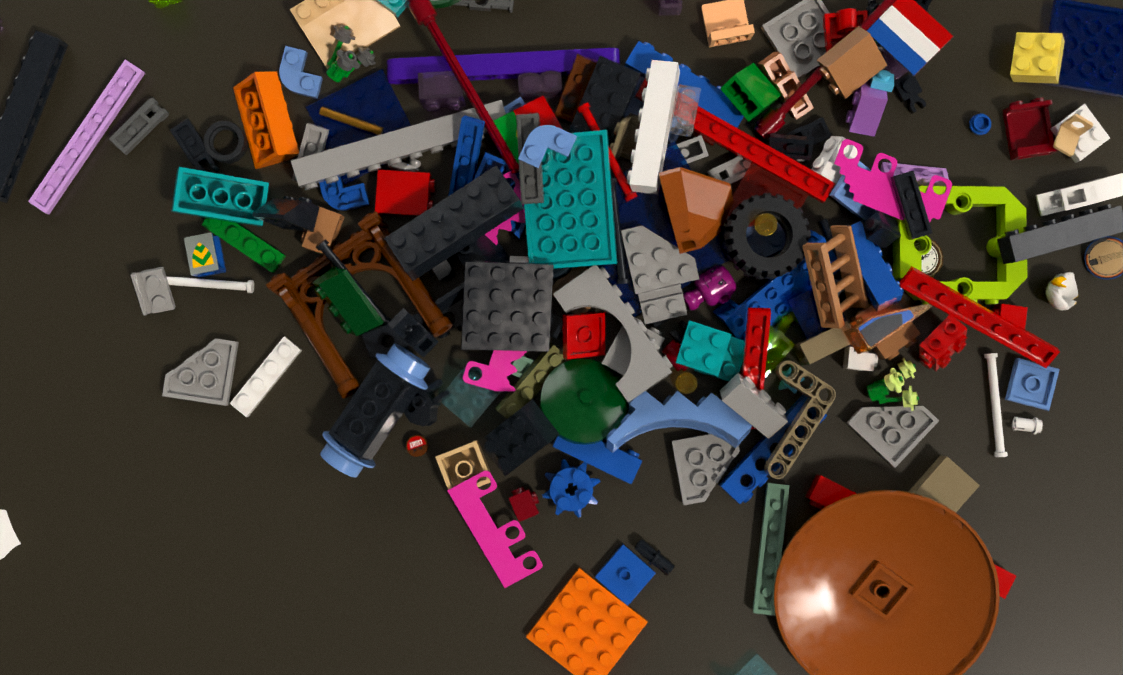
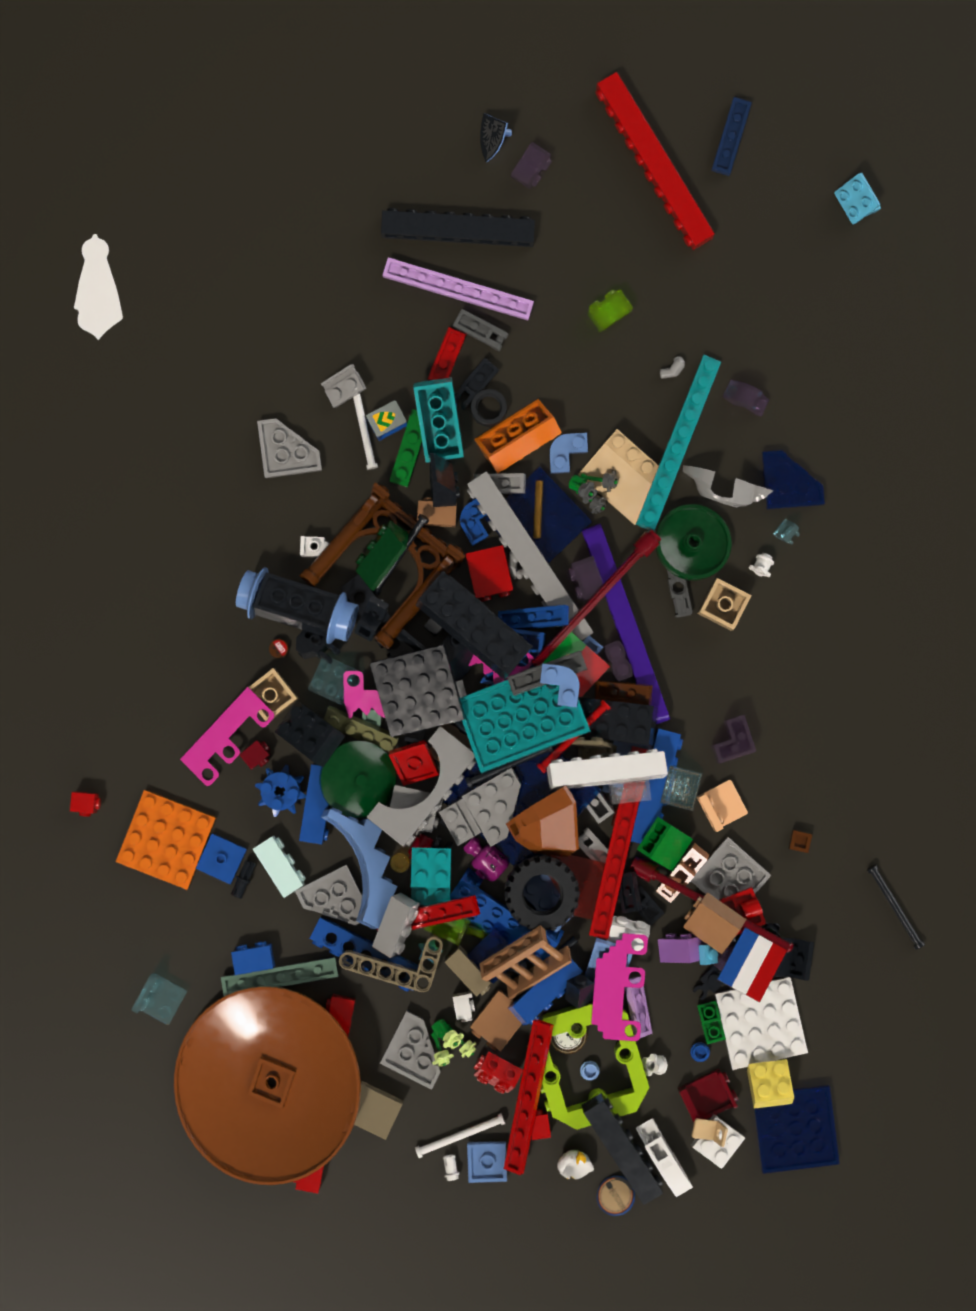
camera: 75 degrees right, 0 degrees up
(153, 168) = (447, 354): none -> red tile
(266, 376) = (299, 502): white plate -> none
(317, 383) = (305, 546): none -> white brick
(652, 513) = (279, 866): none -> light aqua brick
(696, 58) = (681, 788): none -> clear light blue tile
(742, 572) = (253, 958): none -> blue brick
(765, 224) = (549, 889): clear yellow plate -> none
(870, 332) = (488, 1007): slope -> none
(911, 205) = (607, 1010): black tile -> none
(952, 103) = (711, 1022): none -> green slope
(966, 246) = (589, 1070): none -> light blue plate
(977, 55) = (763, 1029): none -> white plate
(980, 174) = (654, 1064): none -> white brick

